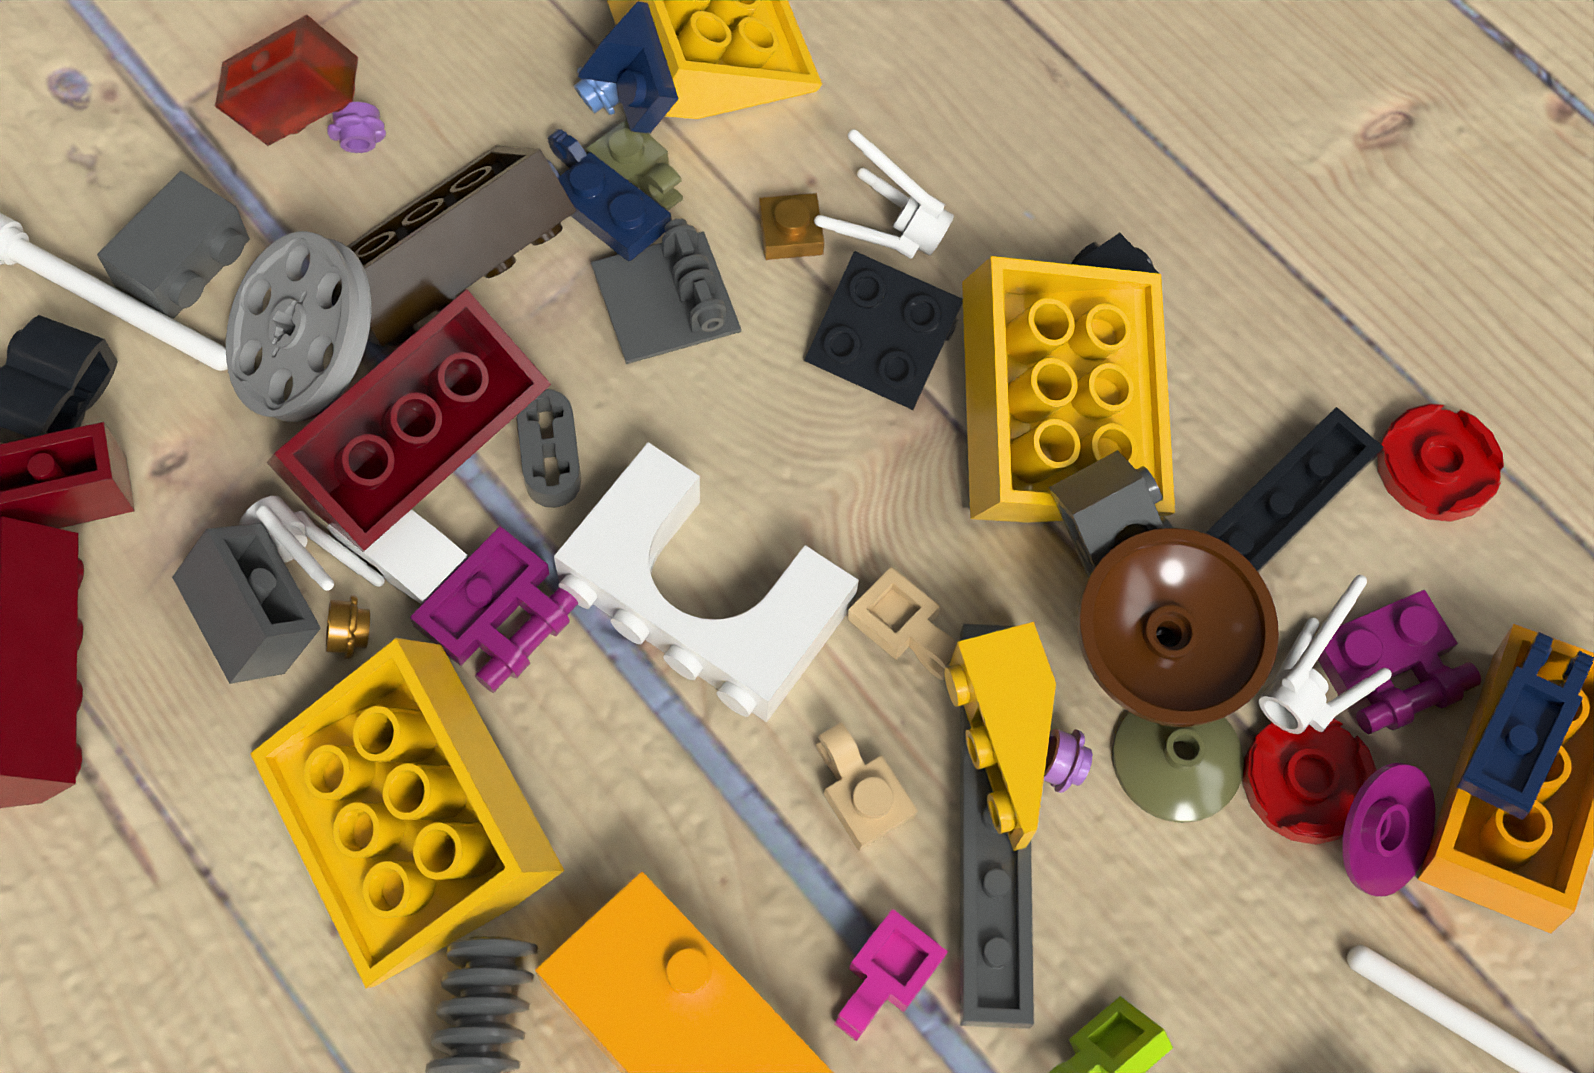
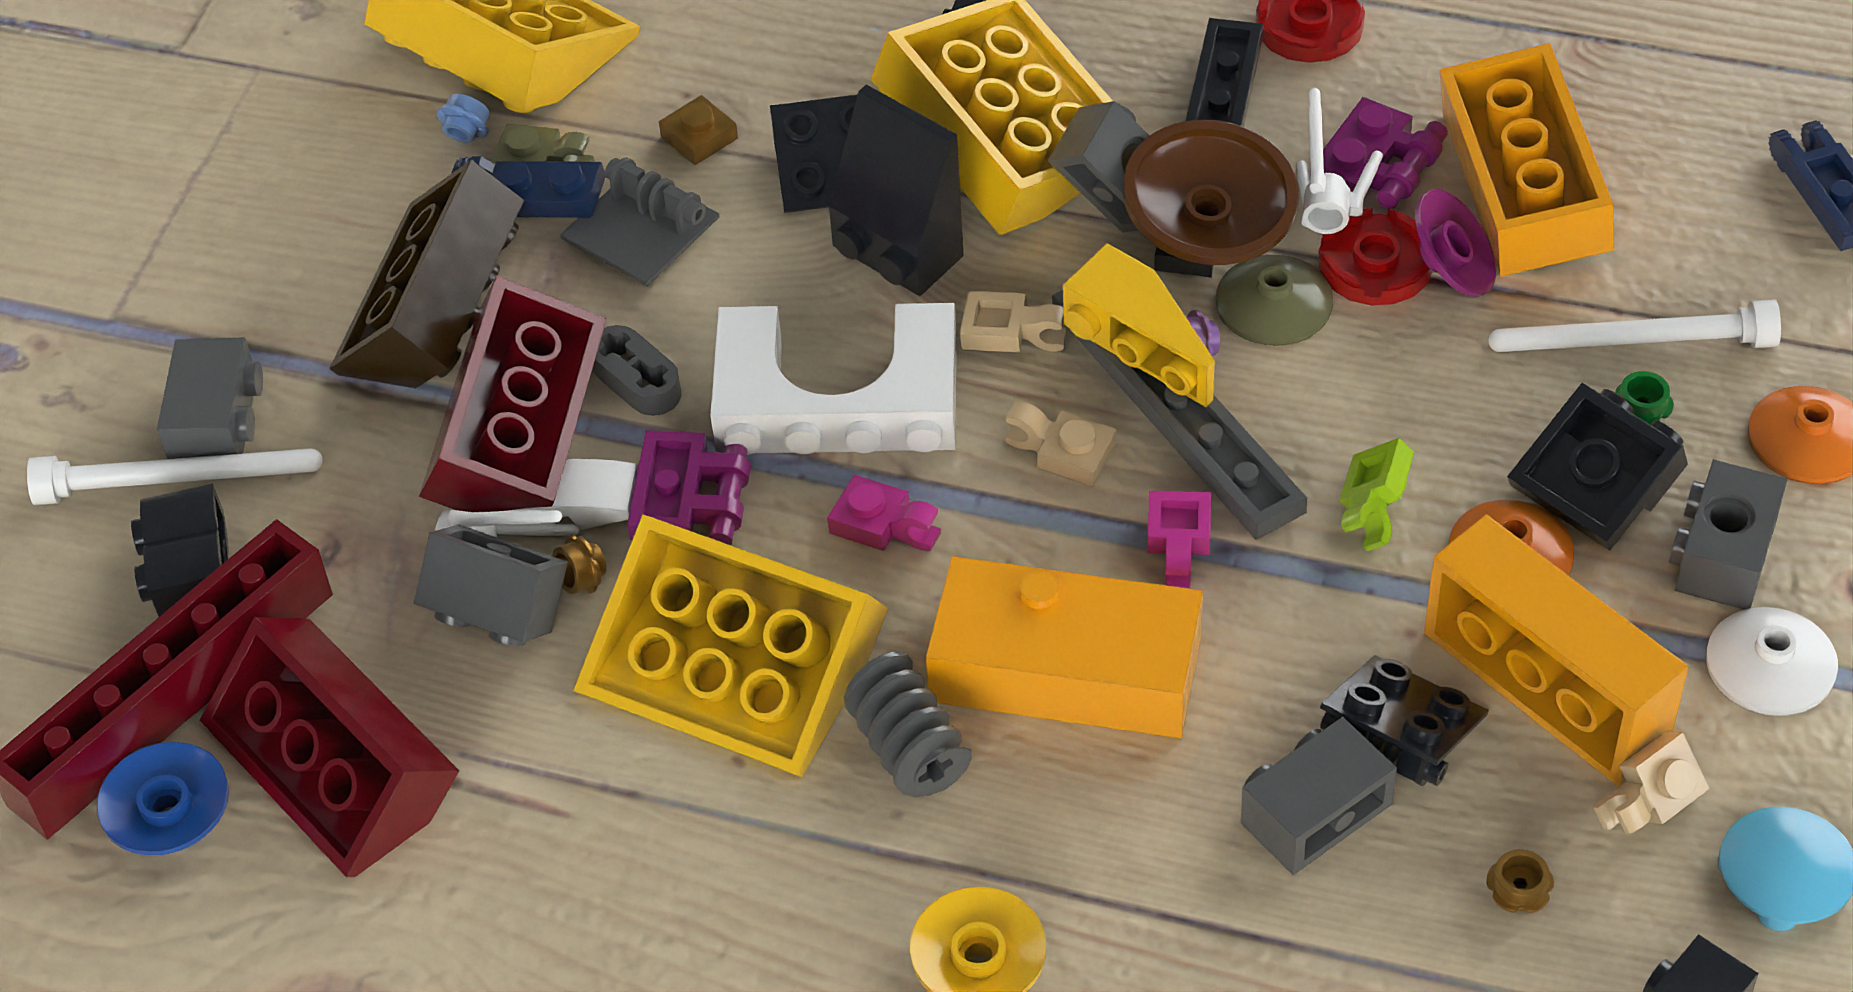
camera: 25 degrees left, 15 degrees down
(287, 81) = (211, 233): clear red brick -> none
(298, 327) = (393, 397): light grey wedge -> none
(357, 127) = (284, 247): medium lavender plate -> none
(637, 64) = (495, 76): dark blue slope -> none
(639, 751) = (878, 512): none -> dark pink plate
(885, 432) = (898, 194): none -> black slope
(921, 217) = (801, 69): white plant -> none
(1525, 732) = (1497, 118): dark blue hinge -> none

